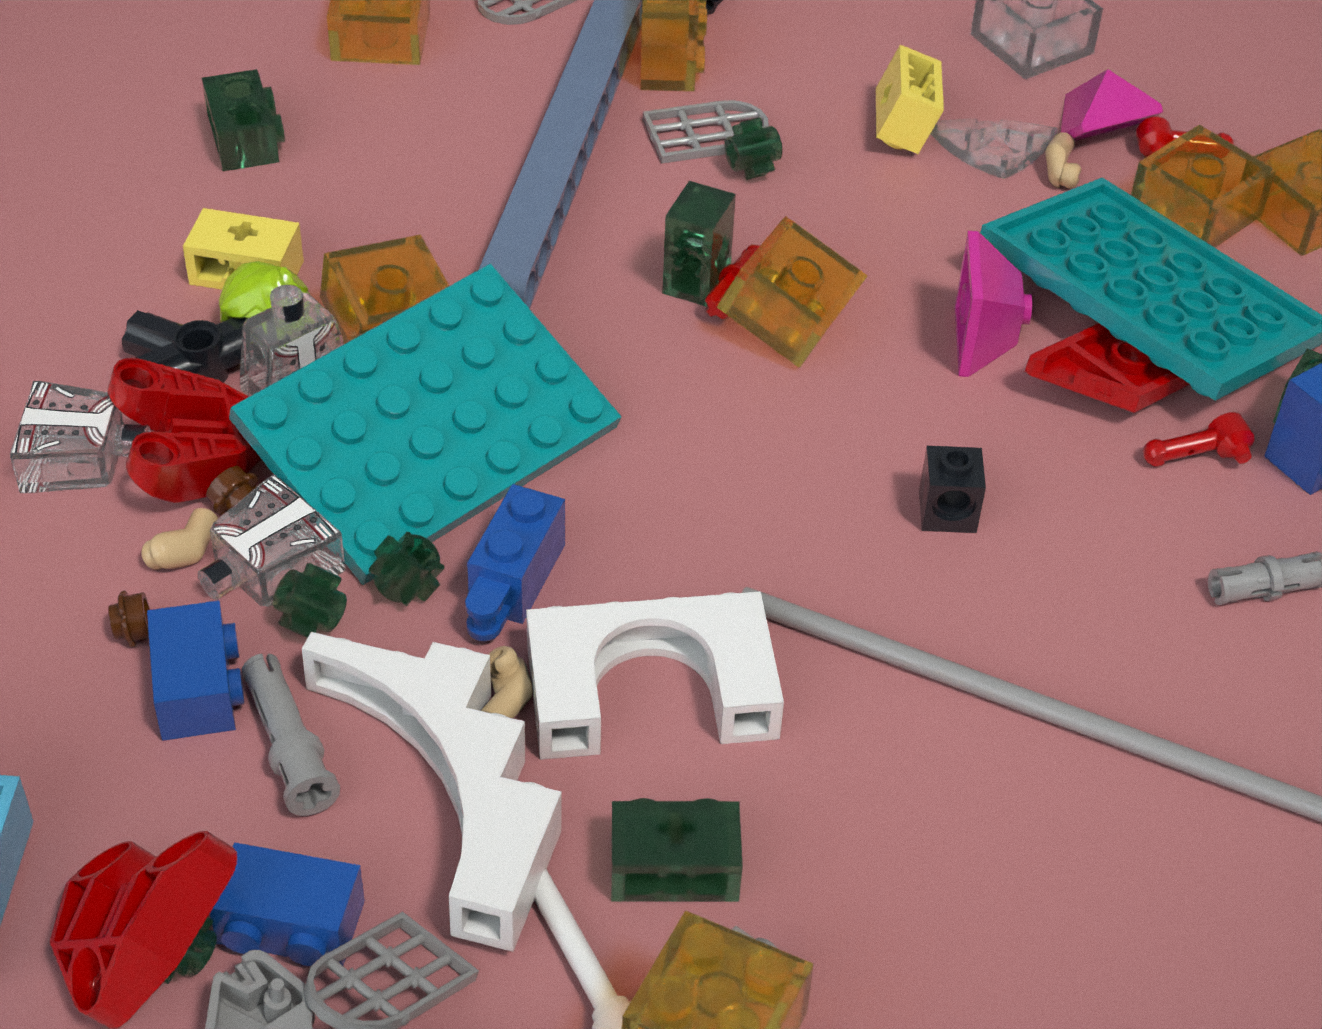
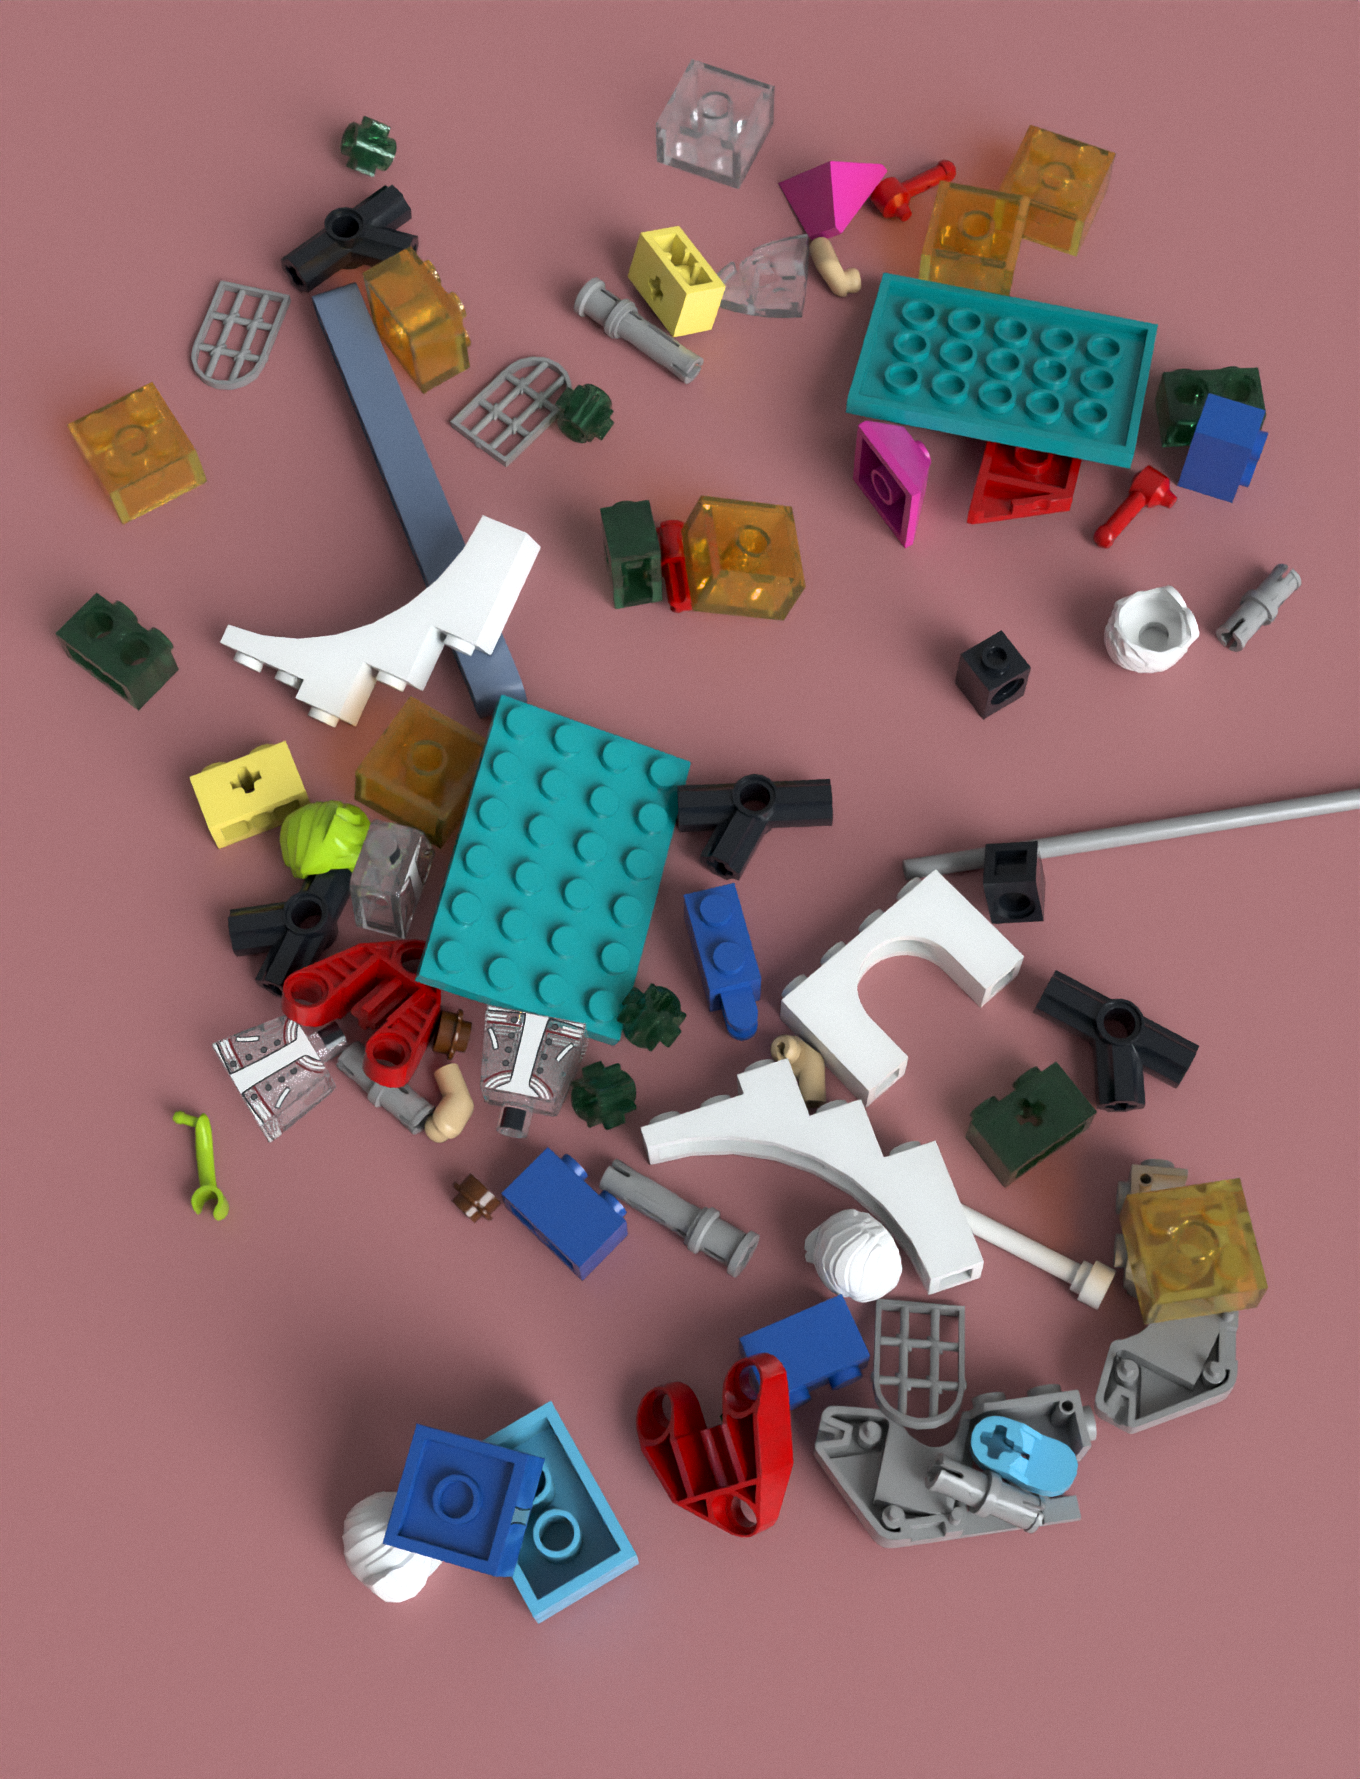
camera: 30 degrees left, 20 degrees up
(143, 511) = (401, 1102): none -> light grey pin
(402, 846) = (854, 1256): none -> white hair
(452, 207) = (459, 610): none -> white arch
(635, 473) = (741, 830): none -> black piece
(820, 850) = (1116, 1061): none -> black piece
(829, 646) = (1014, 882): none -> black brick
(844, 111) = (622, 320): none -> light grey pin
(1133, 528) = (1150, 630): none -> white hair

